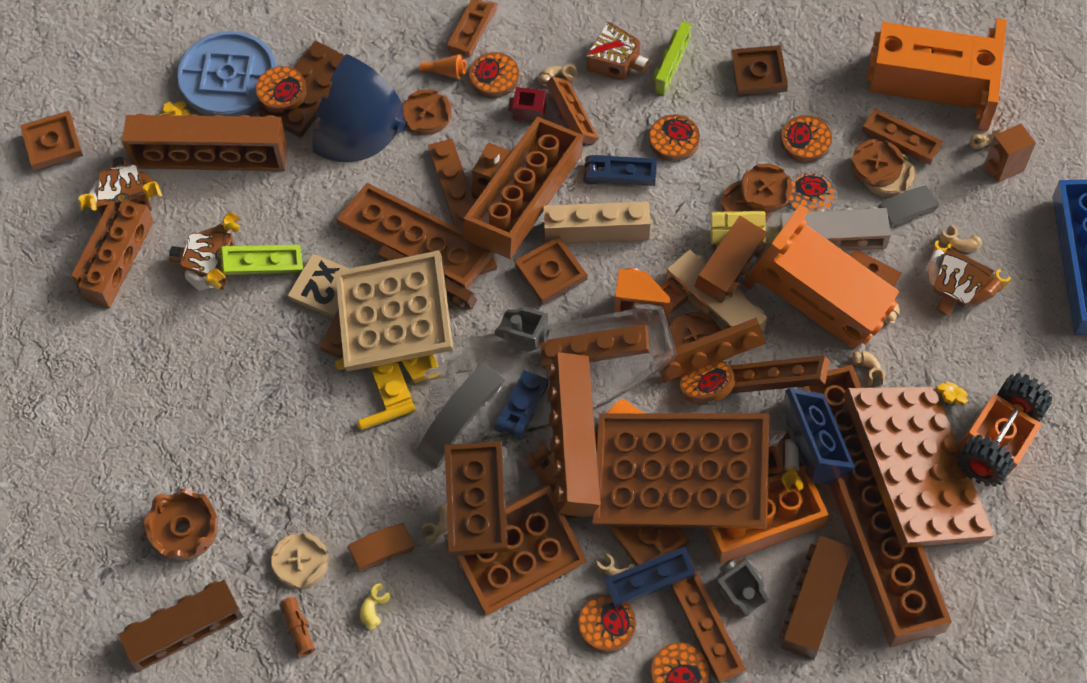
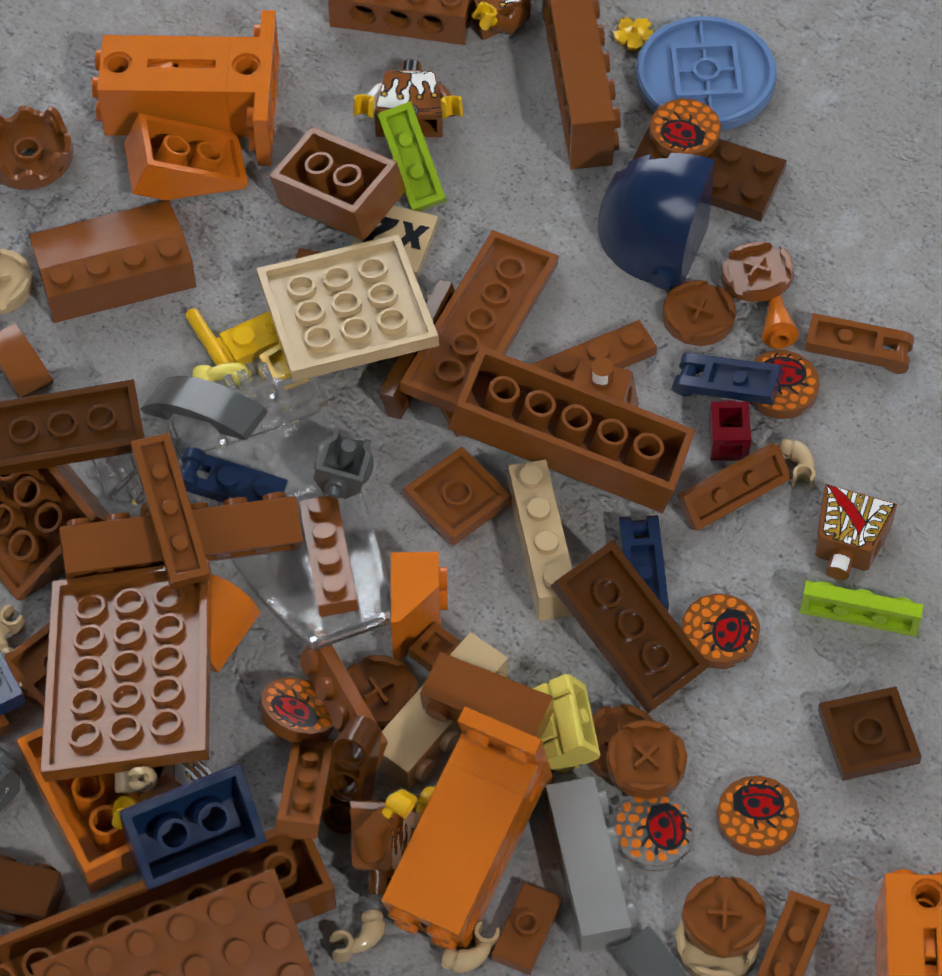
camera: 80 degrees right, 5 degrees down
(160, 393) = (194, 81): none -> orange brick
(221, 415) = (182, 159): none -> orange slope
(278, 306) = (338, 183): none -> dark orange brick
(297, 474) = (113, 260): none -> dark orange slope
(405, 70) = (757, 271): none -> dark orange tile
(422, 418) = (217, 372): none -> light yellow arm
(490, 98) = (728, 378): none -> dark blue plate
(567, 425) = (170, 510): none -> dark orange plate
(675, 178) = (630, 626): none -> reddish brown plate
(771, 338) = (351, 771): none -> reddish brown beam
(777, 459) = (135, 780): none -> tan arm
(810, 332) = (382, 833): none -> dark orange torso

